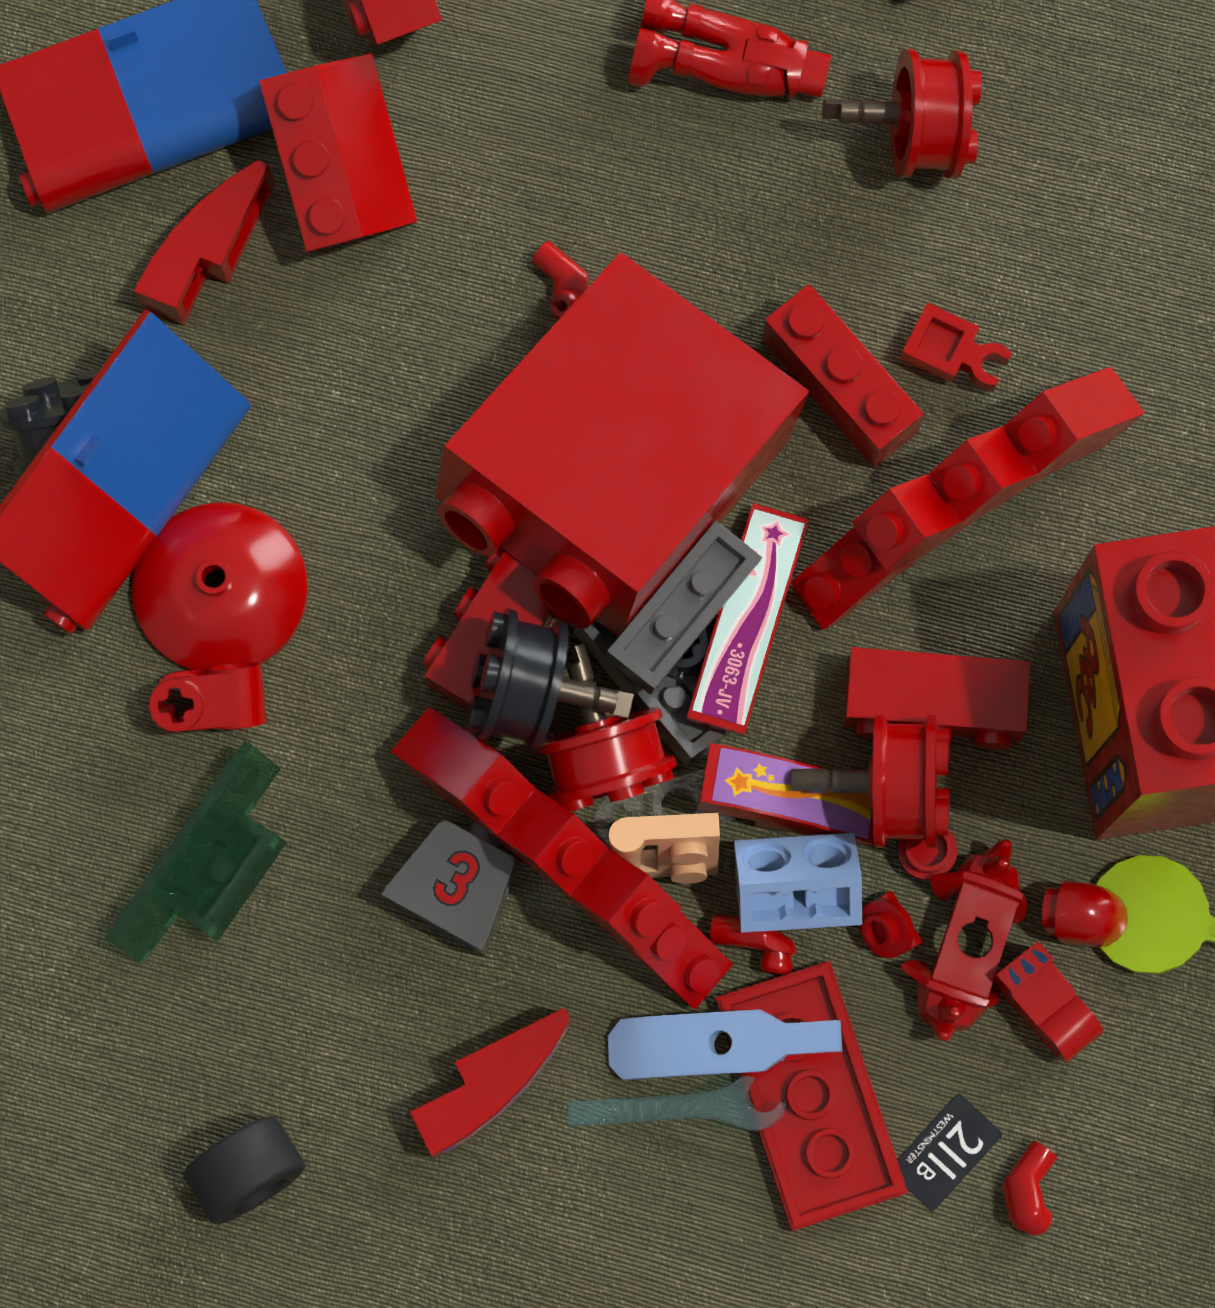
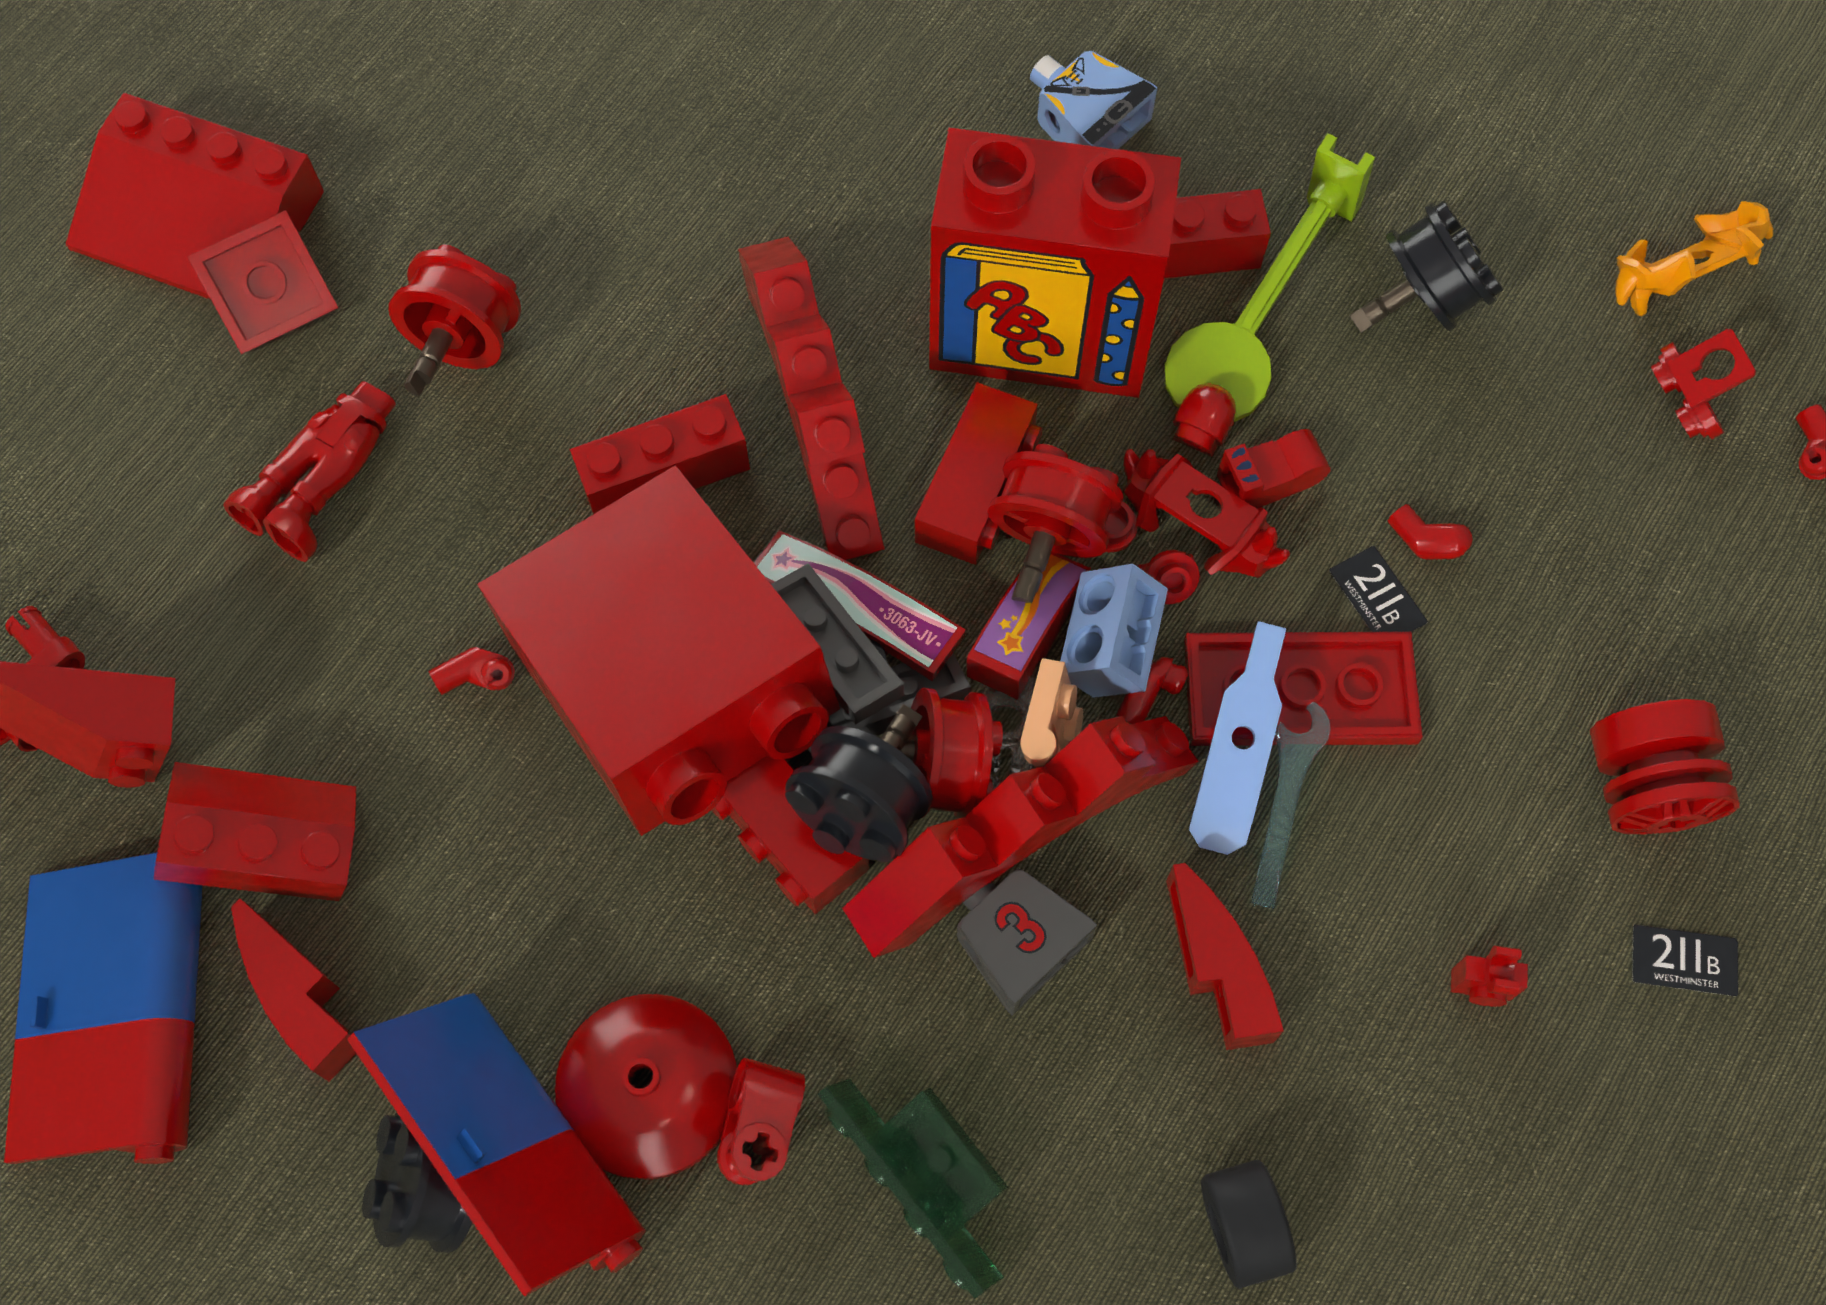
camera: 75 degrees left, 10 degrees down
(946, 344) = (668, 373): red plate -> none

